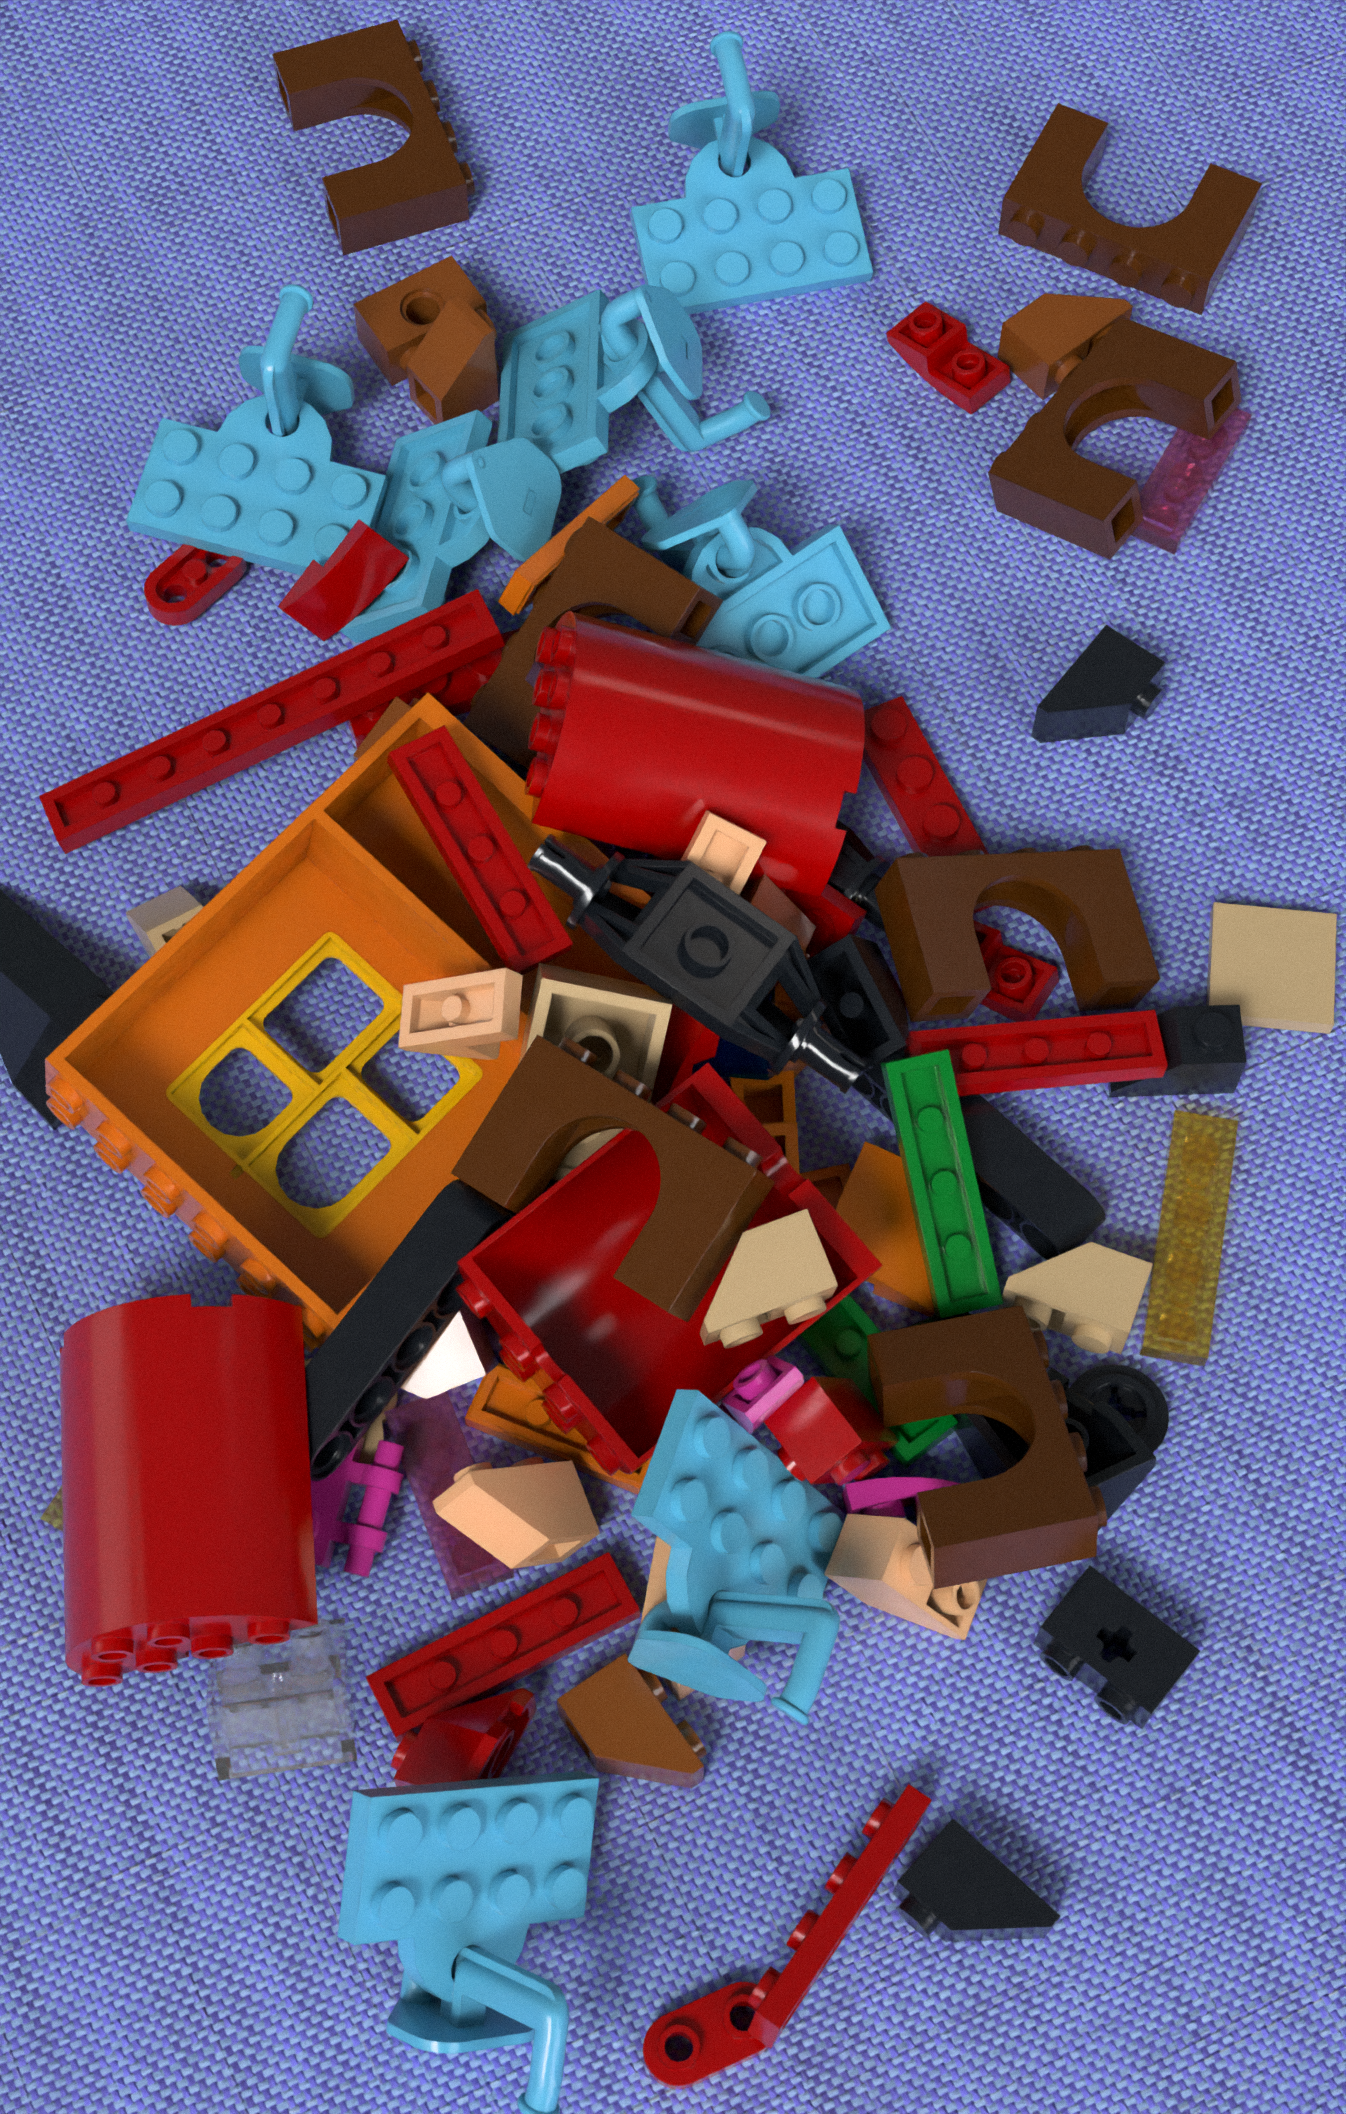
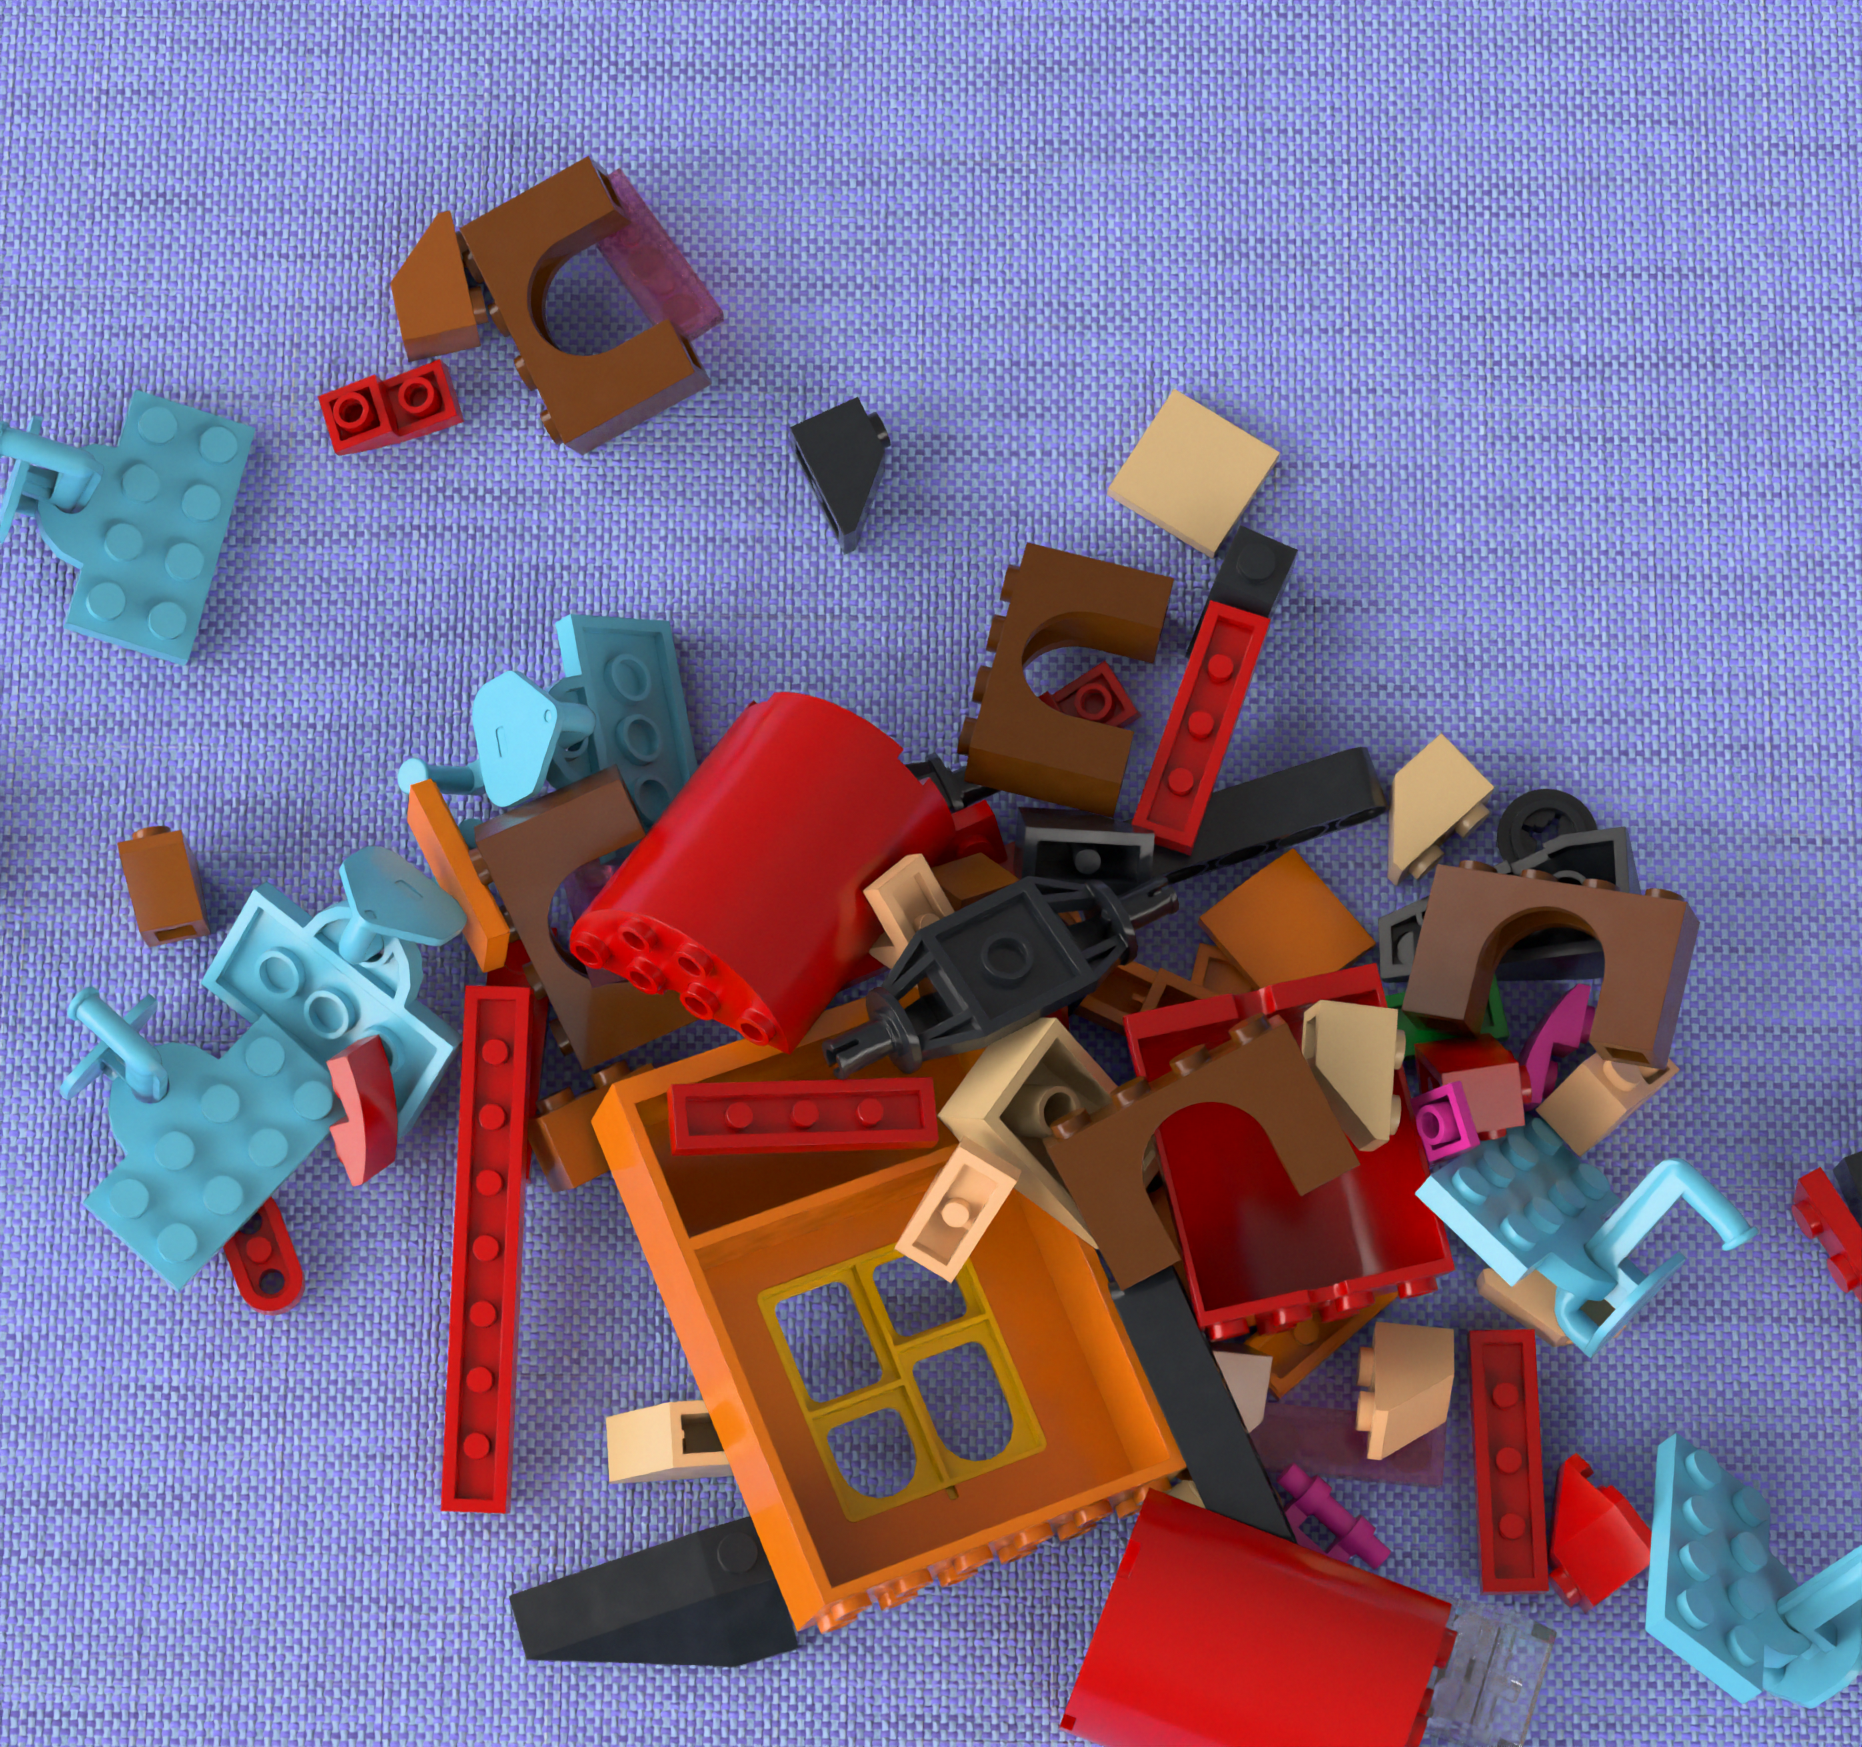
camera: 65 degrees left, 10 degrees up
(399, 316) = (60, 860): dark orange brick -> none
(594, 357) = (263, 772): medium azure plate -> none
(626, 1729) = (1629, 1391): dark orange slope -> none
(915, 784) = (873, 685): red plate -> none
(941, 1183) = (1283, 871): green plate -> none
(1095, 1617) = (1779, 924): black brick -> none
(1169, 261) = (282, 221): reddish brown arch -> none
(1189, 1238) = (1416, 685): clear yellow plate -> none

